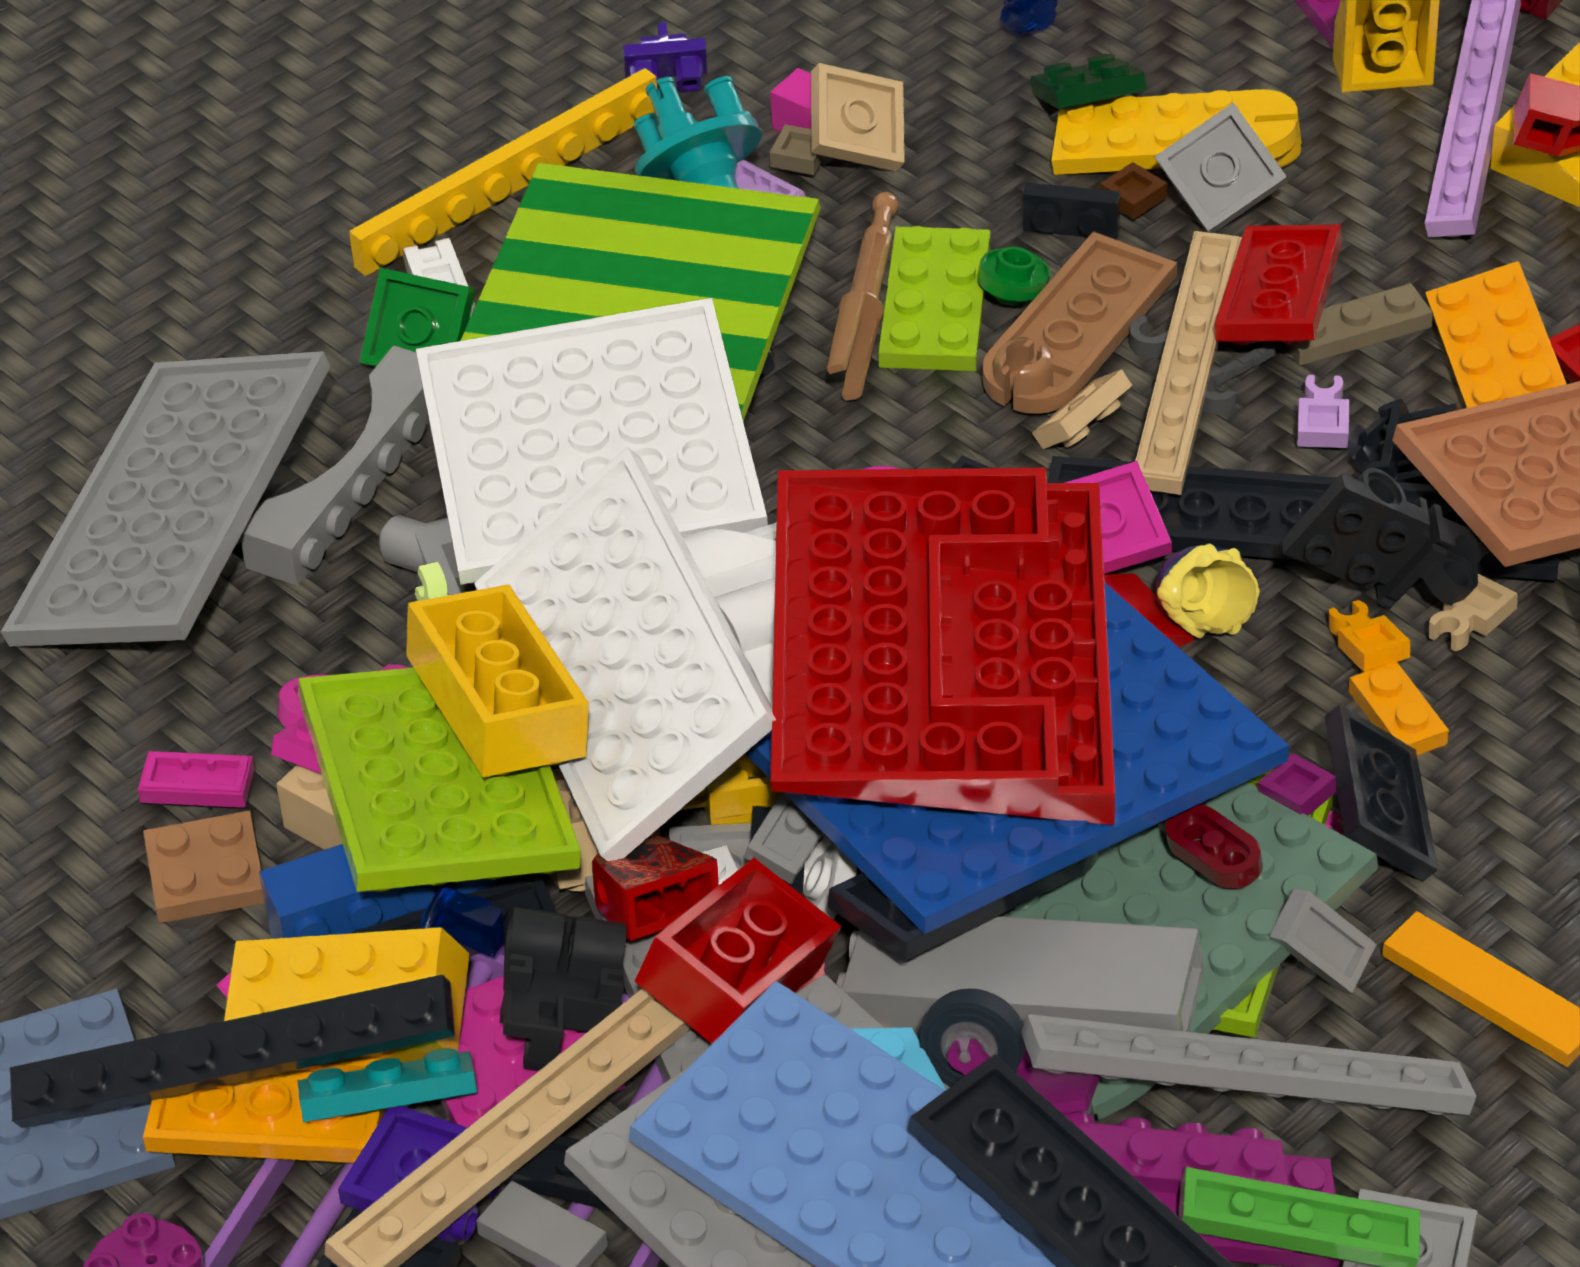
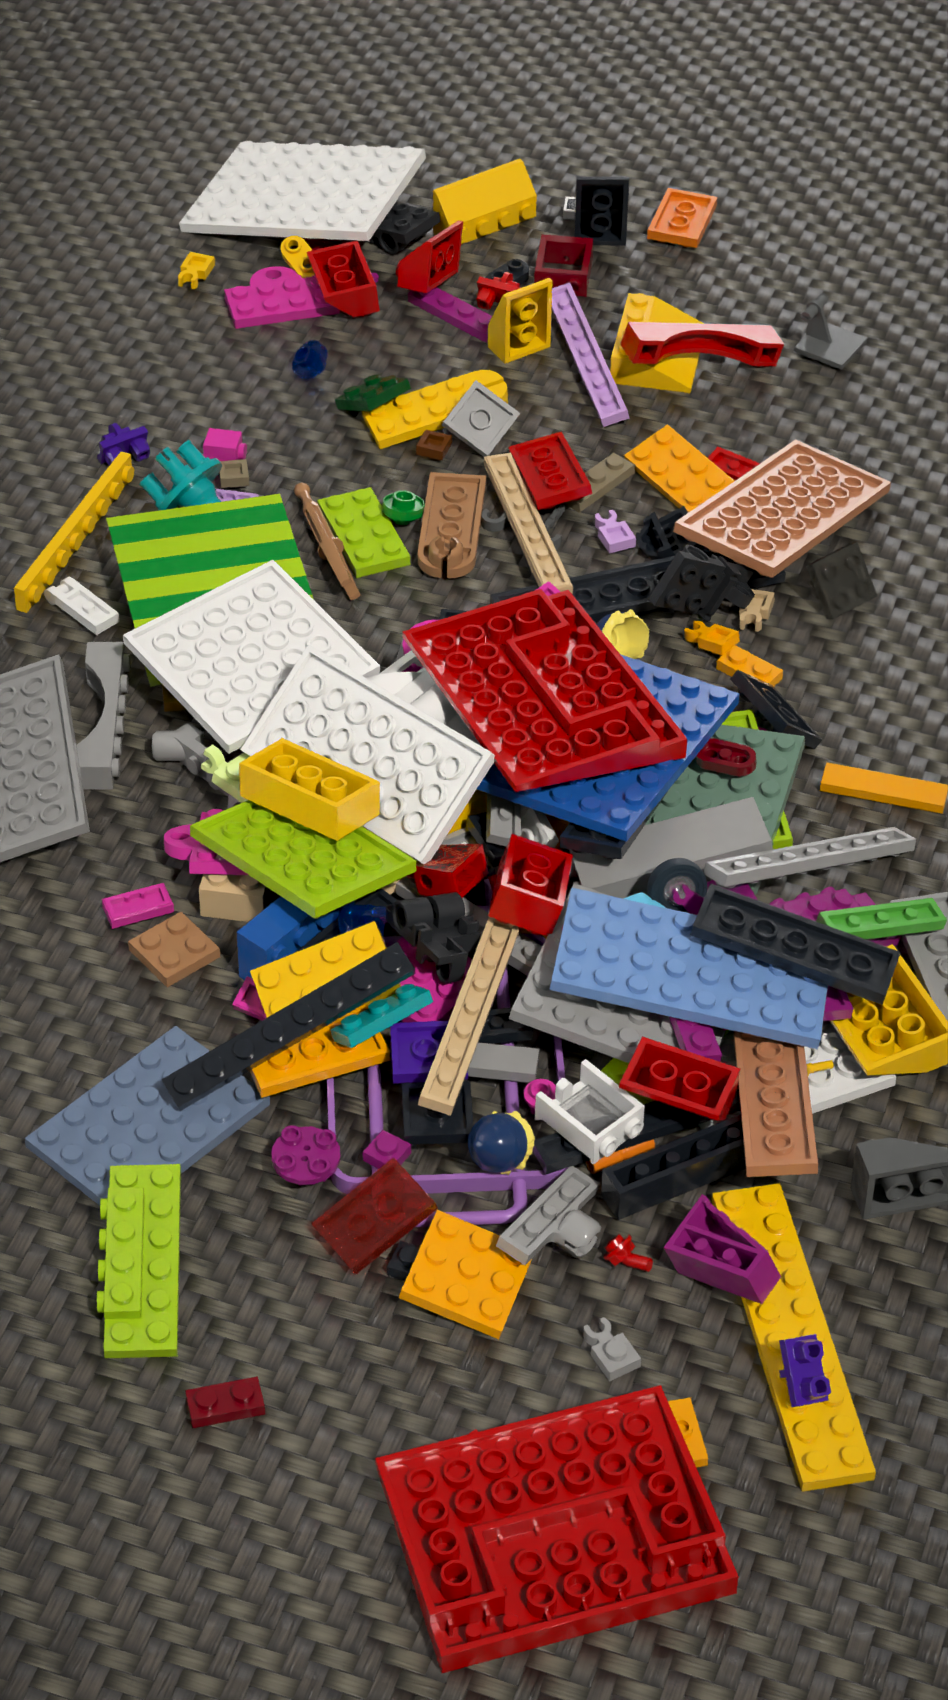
camera: 30 degrees left, 0 degrees up
(414, 314) = (88, 621): green plate -> none
(857, 117) = (261, 445): tan plate -> none
(1071, 210) = (409, 464): black plate -> none
(1092, 402) = (487, 567): tan plate -> none
(1298, 785) = (743, 716): magenta plate -> none
(1323, 940) = (799, 788): light grey tile -> none

